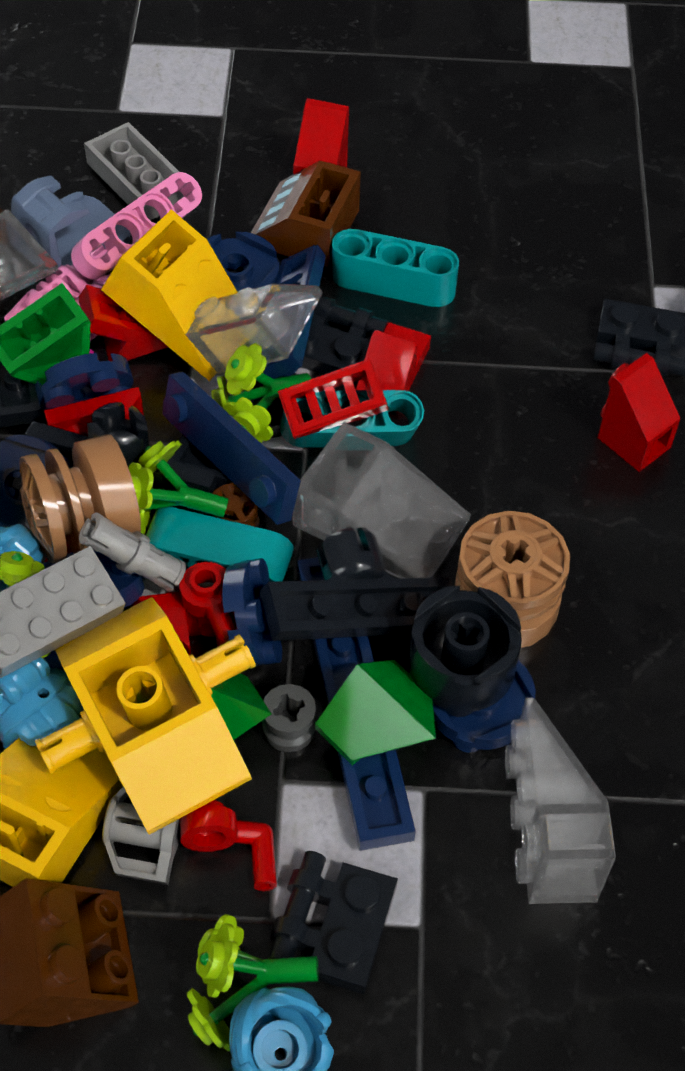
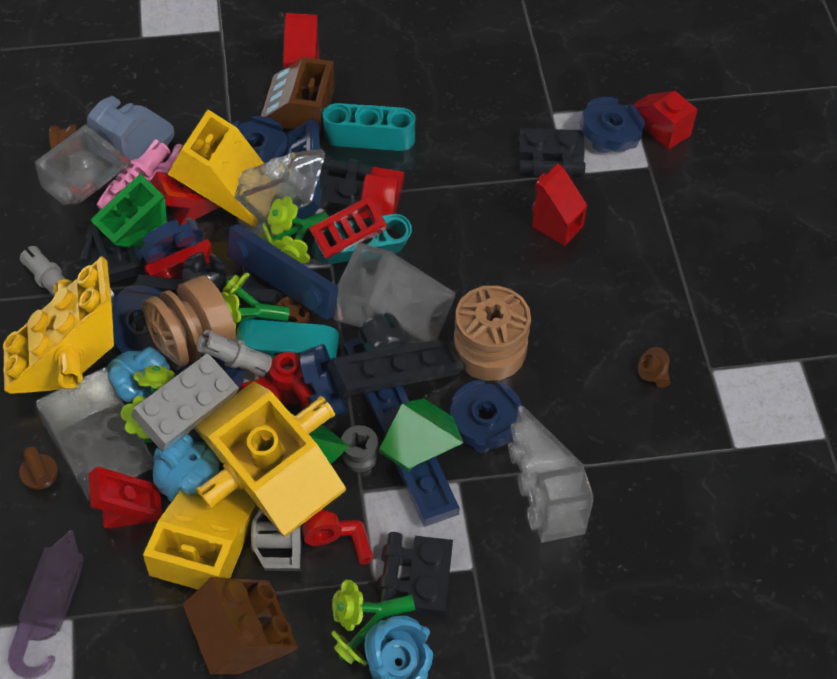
camera: 10 degrees left, 0 degrees up
(129, 164) = (168, 82): light grey piece -> none
(136, 222) = (181, 122): bright pink beam -> none
(464, 648) = (470, 382): black brick -> none

